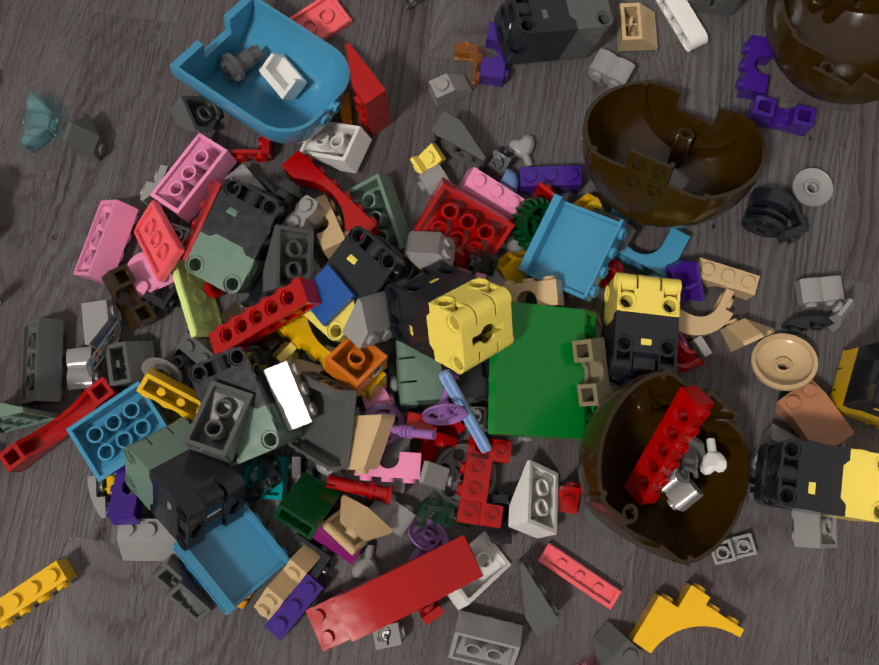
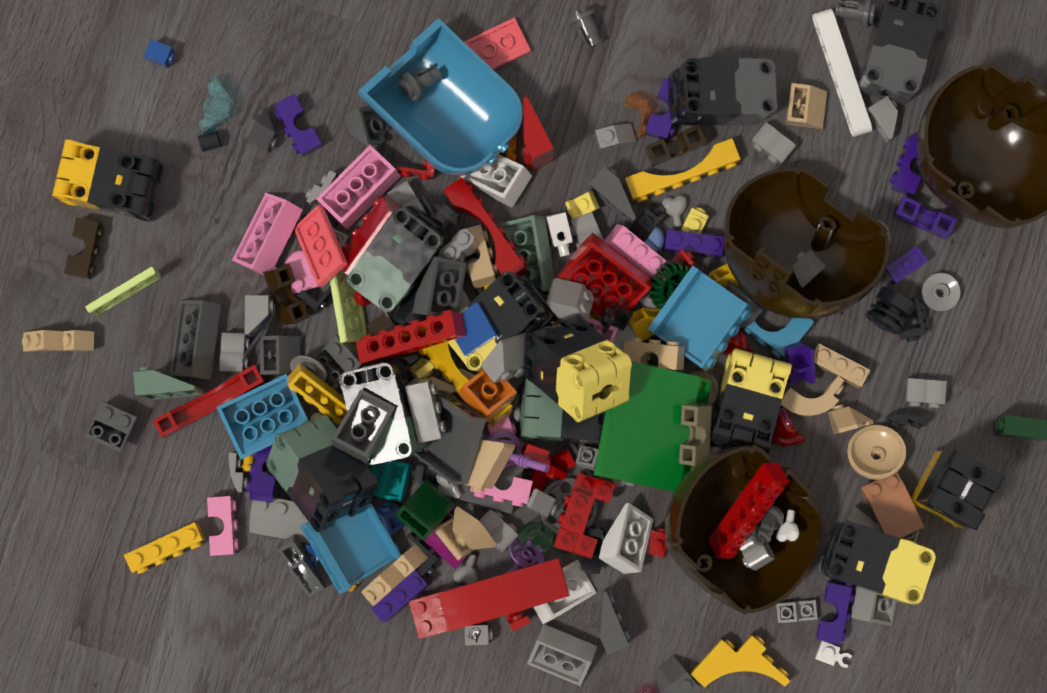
camera: 10 degrees right, 5 degrees up
(35, 158) = (209, 141): none -> black beam
(97, 575) = (224, 509): none -> bright pink arch
(115, 116) = (289, 111): none -> dark purple arch
(265, 515) = (387, 513): none -> dark blue bracket
(271, 481) = (393, 484): black bracket -> none
(283, 76) = (457, 102): white panel -> none
(370, 490) = (481, 506): red pin -> none
(405, 181) = (559, 223): none -> white torso
(445, 409) = (559, 447): medium lavender dish -> none
(470, 421) = (577, 451): light blue axle -> none
(489, 129) = (646, 184): none -> yellow arch
(525, 79) = (676, 146): none -> dark brown arch
(547, 155) = (695, 221): none -> light yellow bracket
(579, 576) = (655, 612): coral tile -> none
(700, 346) = (804, 426): light grey tile -> none
(718, 27) = (884, 117): none -> light grey slope
(775, 162) = (906, 264): none -> dark purple panel
(778, 561) = (833, 630): none -> dark purple arch
(778, 590) = (830, 653): none -> white plate
(840, 312) = (937, 416): light grey slope -> none

